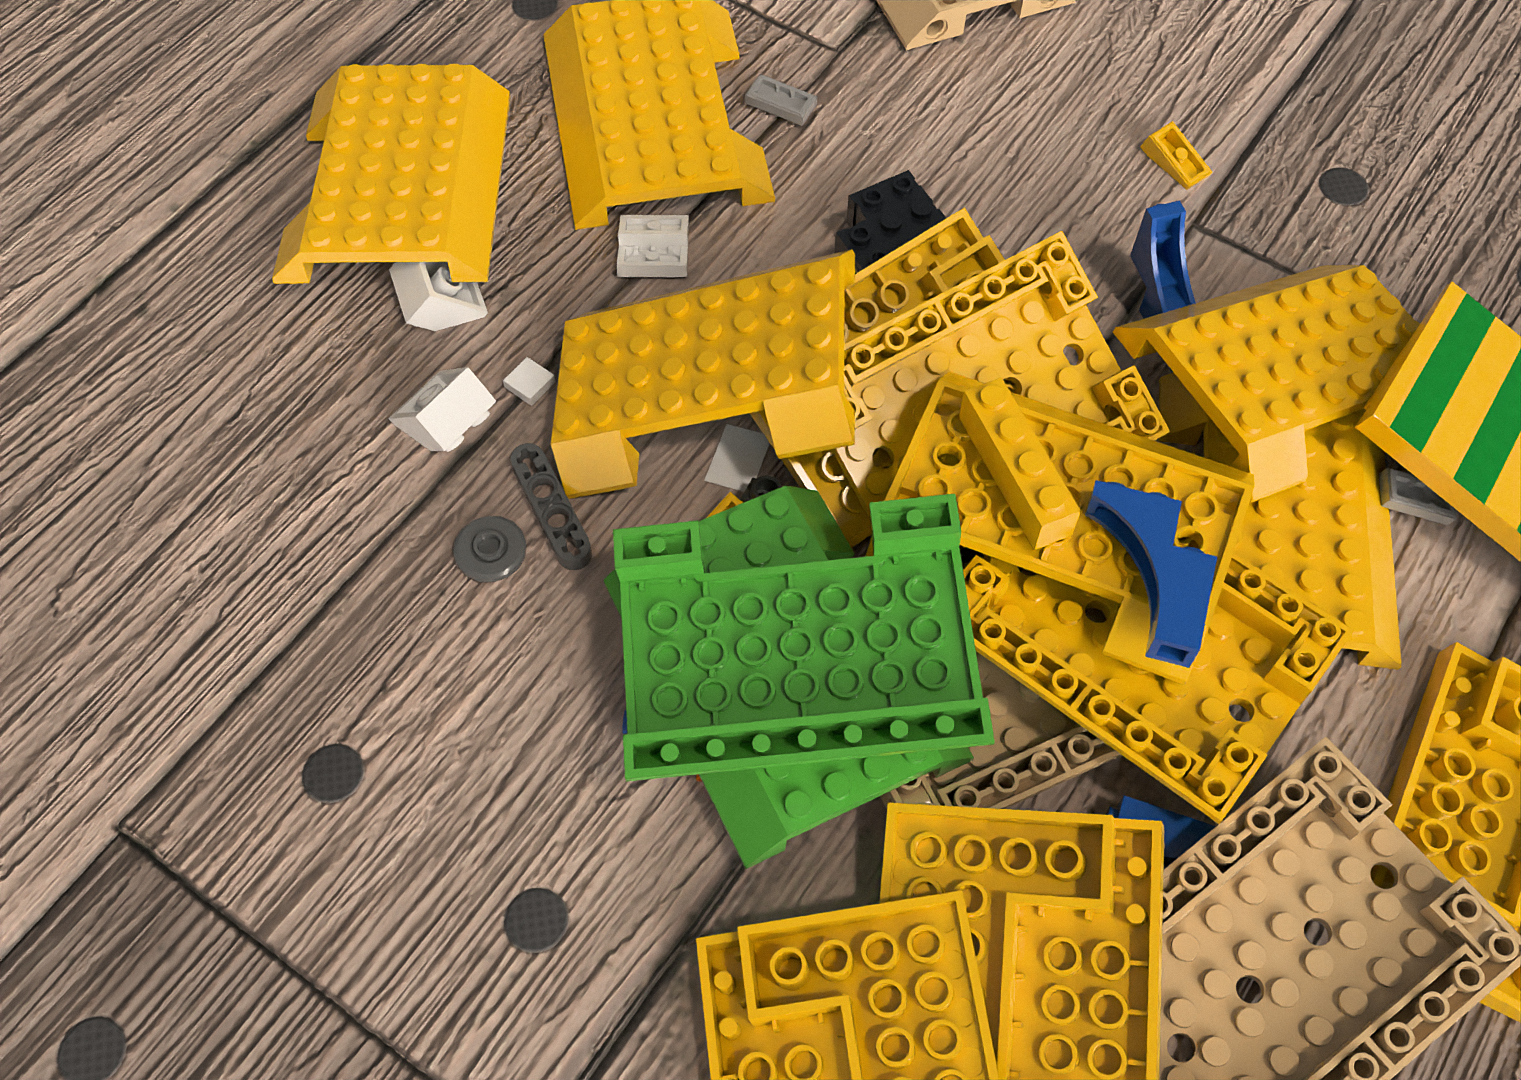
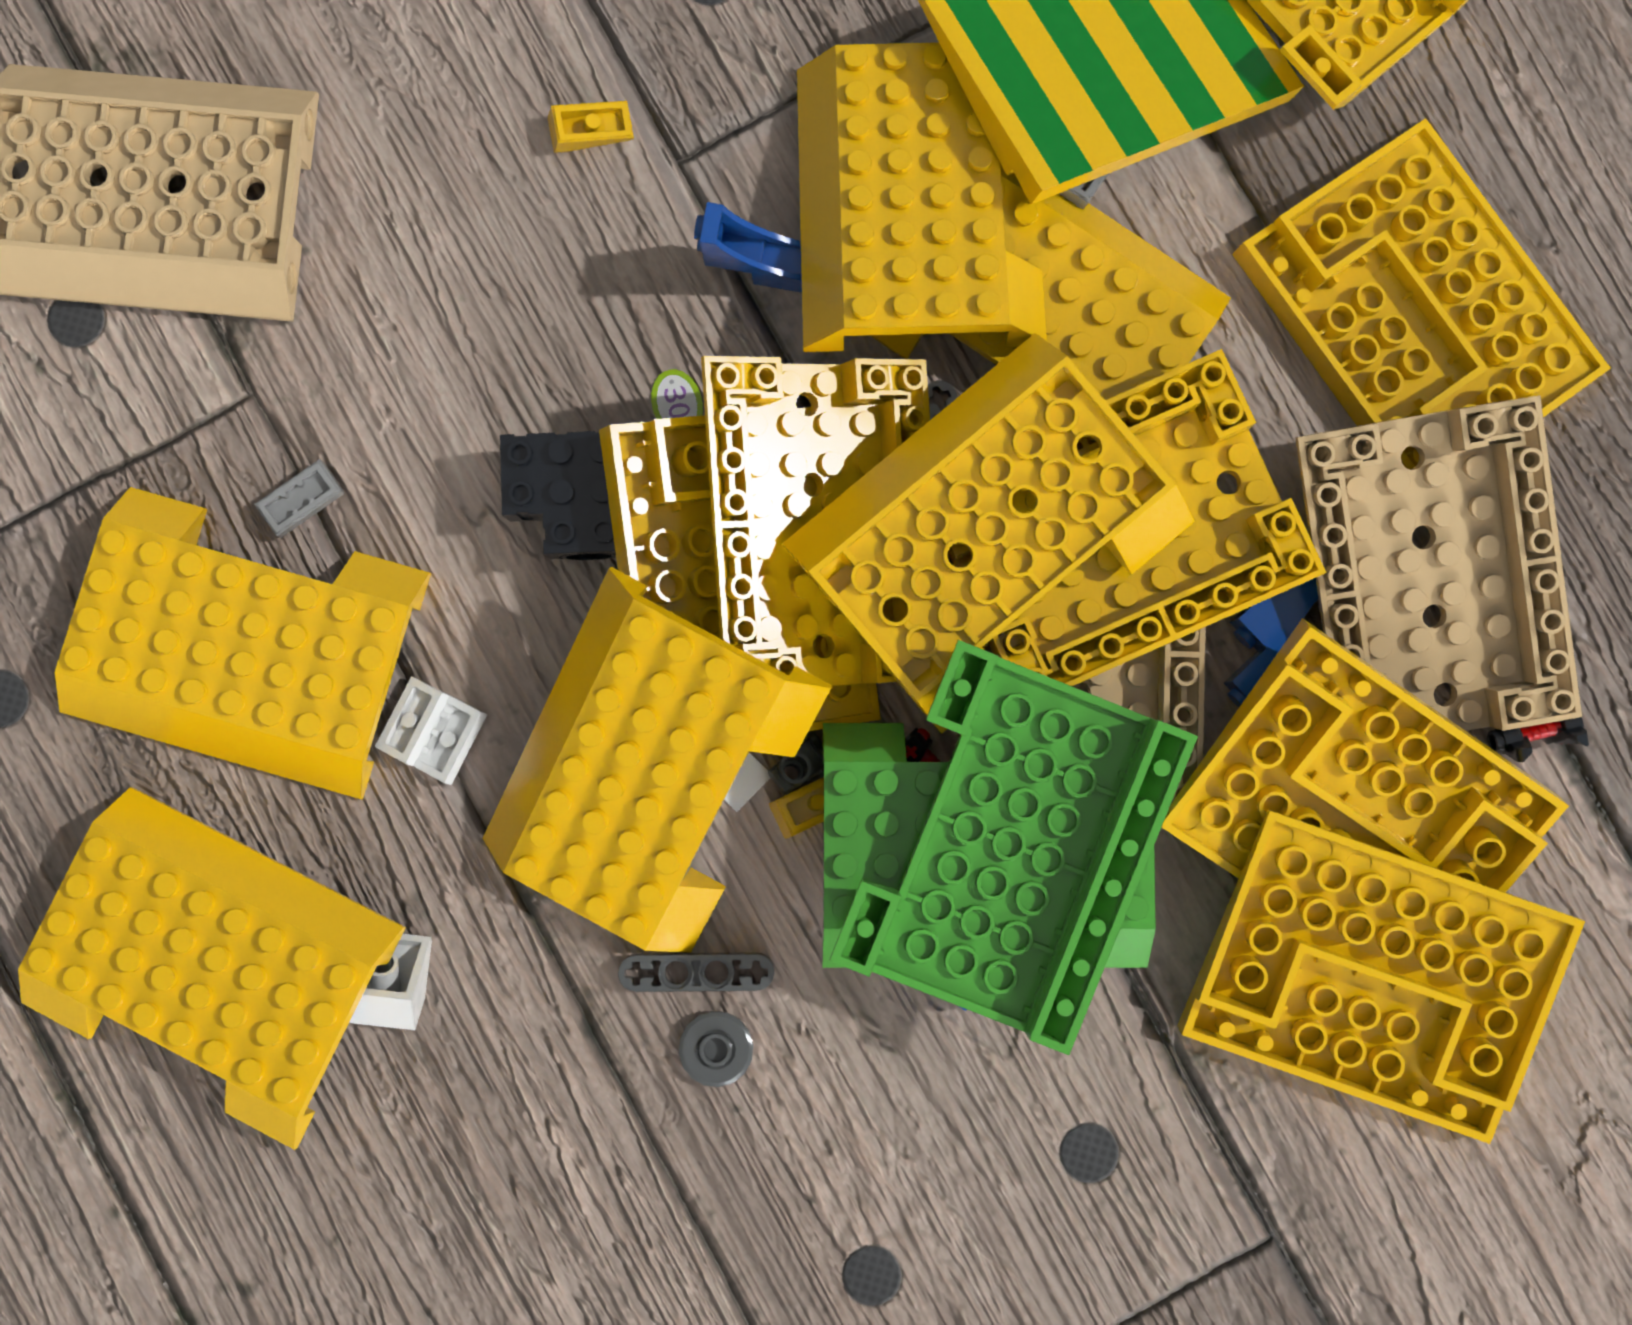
camera: 60 degrees left, 25 degrees up
(444, 409) = (537, 1033): white slope -> none
(529, 381) = (540, 931): white tile -> none
(1018, 463) = (949, 560): yellow brick -> none
(1173, 576) = (1132, 492): blue arch -> none

